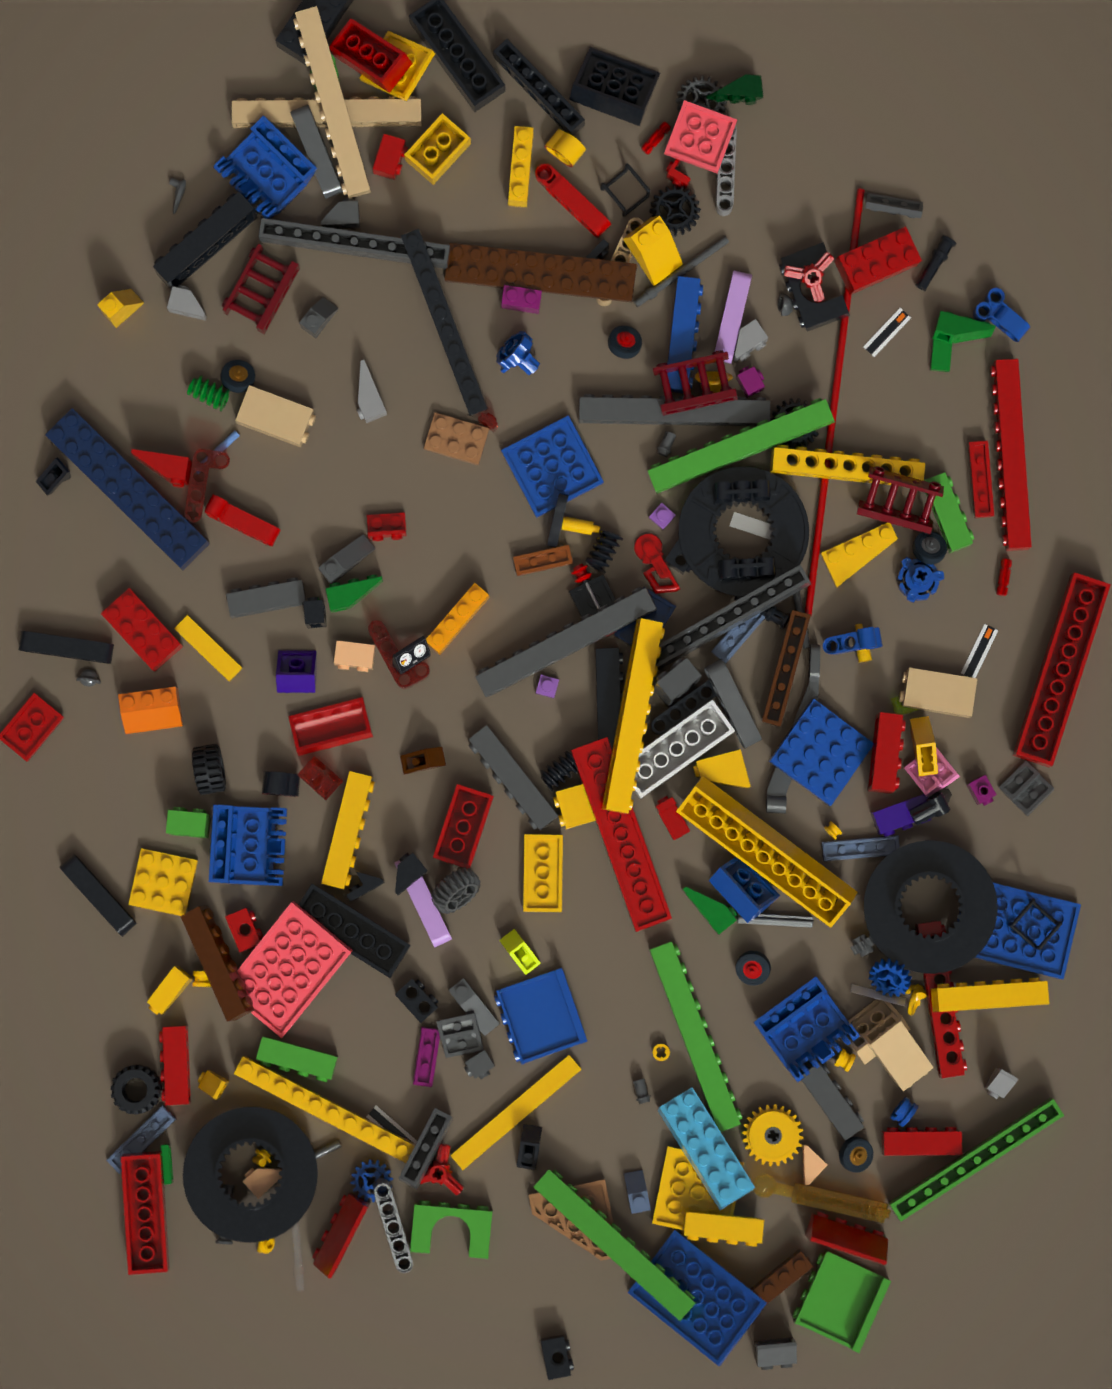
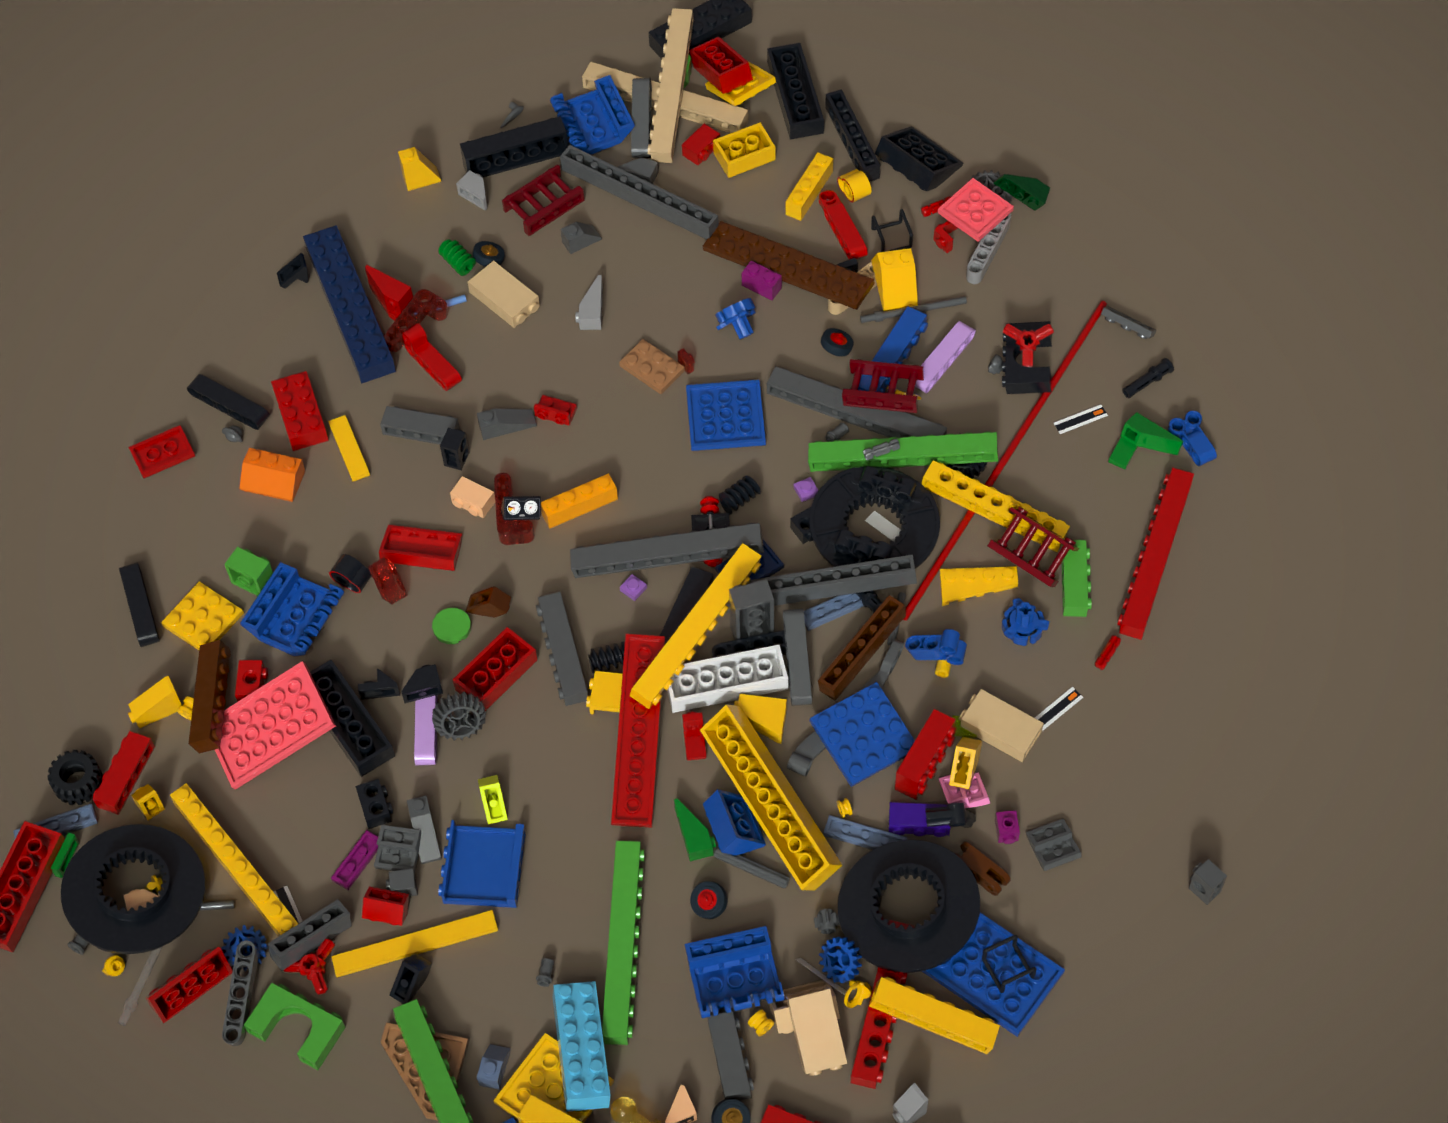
camera: 30 degrees right, 25 degrees down
(208, 769) = (292, 533): black tyre -> none
(296, 671) = (413, 492): dark purple slope -> none
(296, 1057) = (236, 810): bright green brick -> none
(347, 595) = (492, 448): green slope -> none
(347, 829) = (388, 635): yellow brick -> none
(398, 795) = (451, 625): none -> bright green tile
(444, 322) = (684, 268): black brick -> none
(476, 1093) = (385, 906): none -> red brick
(543, 560) = (680, 484): dark orange plate -> none
(543, 873) = (549, 740): yellow plate -> none
(557, 520) = (708, 454): black beam -> none
(579, 526) = (726, 468): yellow cylinder -> none
(649, 549) = (780, 512): red piece -> none
(667, 1052) = (576, 943): yellow bush -> none
(681, 215) = (930, 255): black gear -> none
(722, 457) = (881, 449): none -> dark grey axle
(749, 339) = (949, 379): light grey slope -> none
(750, 381) = (937, 409): magenta brick -> none
(764, 1146) = (659, 1079): yellow gear -> none
(877, 260) = (1095, 356): red brick -> none
(904, 1111) = (798, 1095): blue wheel -> none
(929, 548) = (1045, 599): black wheel -> none
(973, 839) = (984, 869): none -> reddish brown piece
(981, 479) = (1119, 563): red plate -> none
(1061, 670) = (1130, 748): red brick -> none

